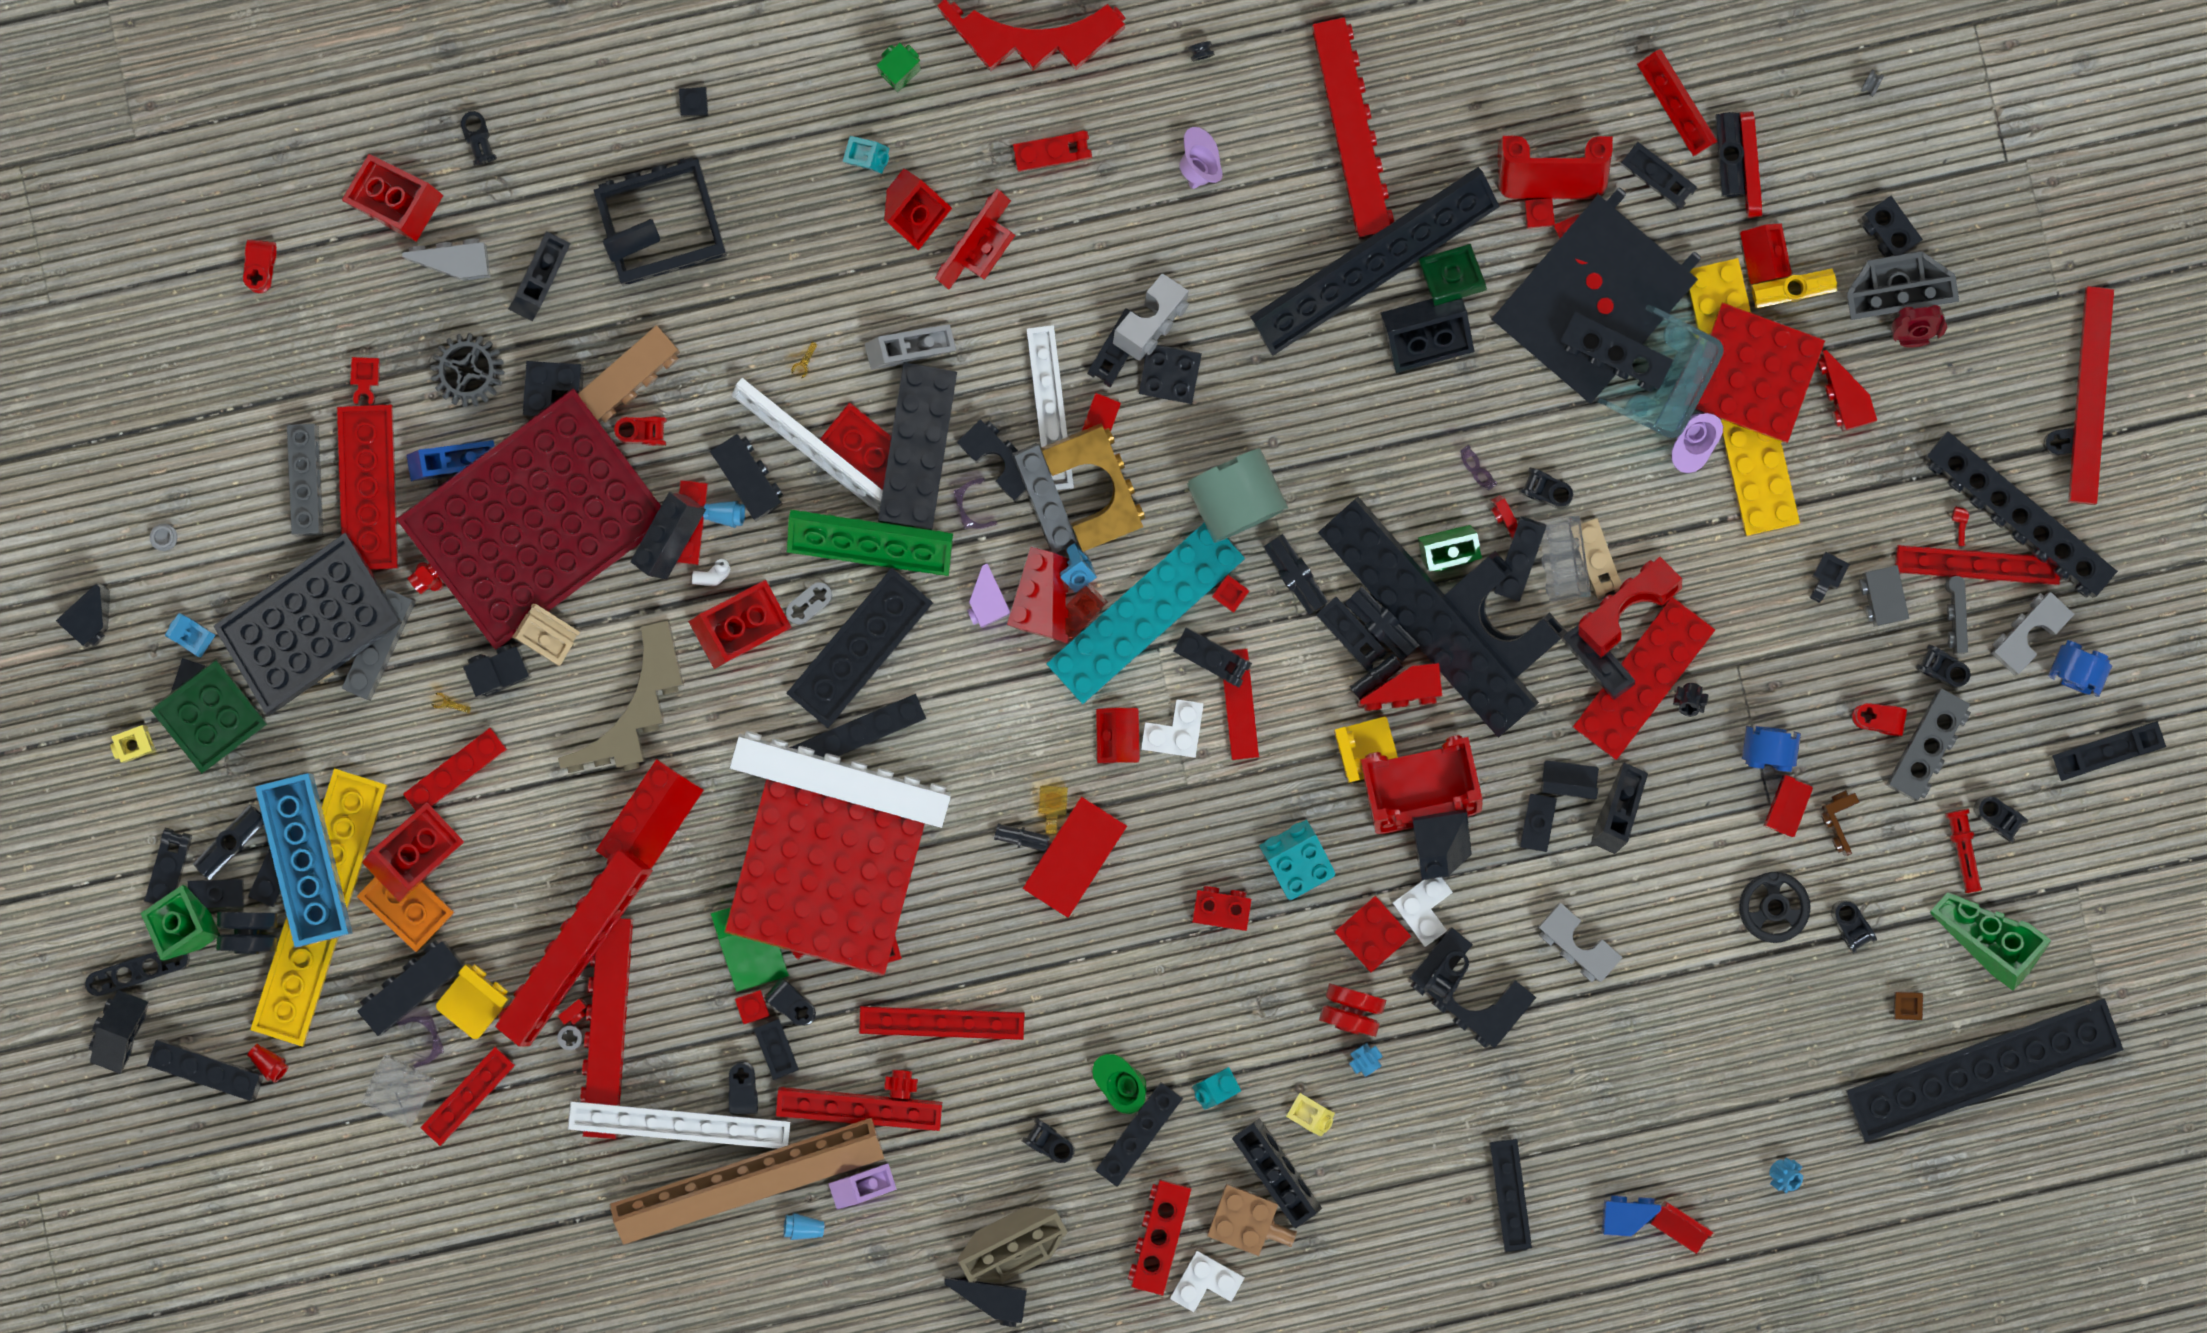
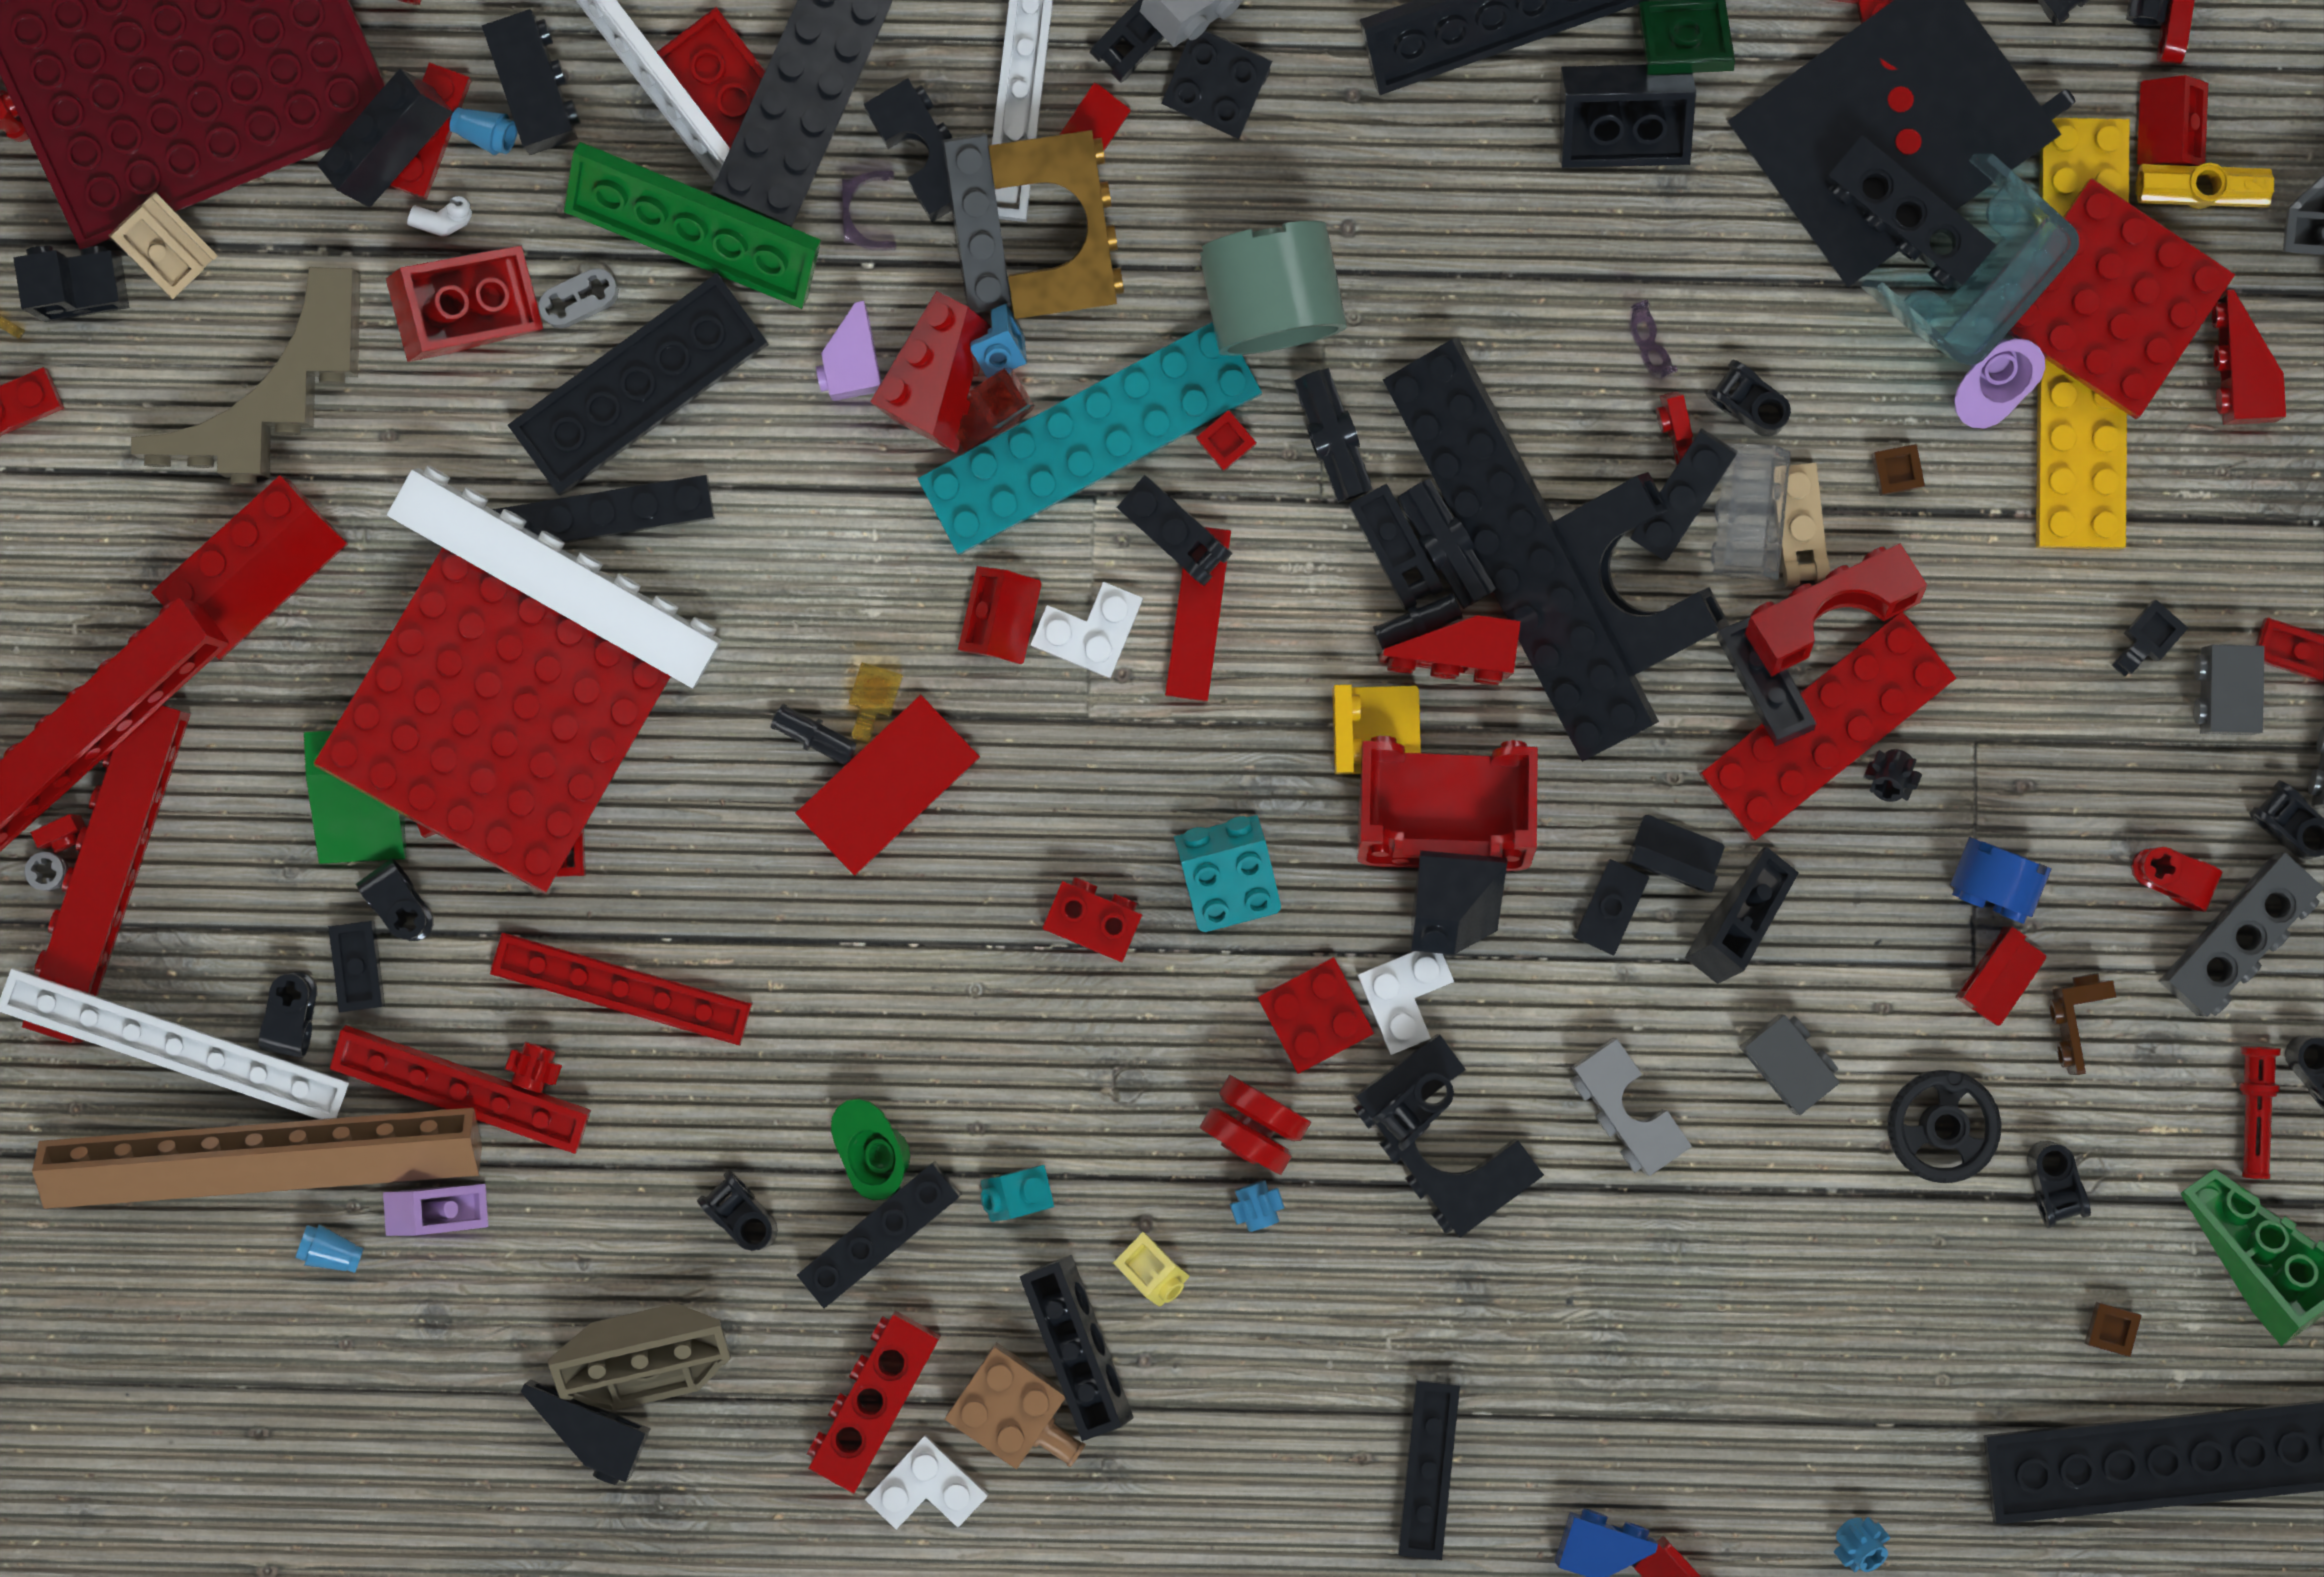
camera: 10 degrees right, 0 degrees up
(752, 1007) = (336, 893): red plate -> none
(1449, 548) = (1579, 452): green brick -> none
(1648, 510) = (1898, 470): none -> reddish brown plate
(1671, 892) = (1791, 1063): none -> dark grey brick

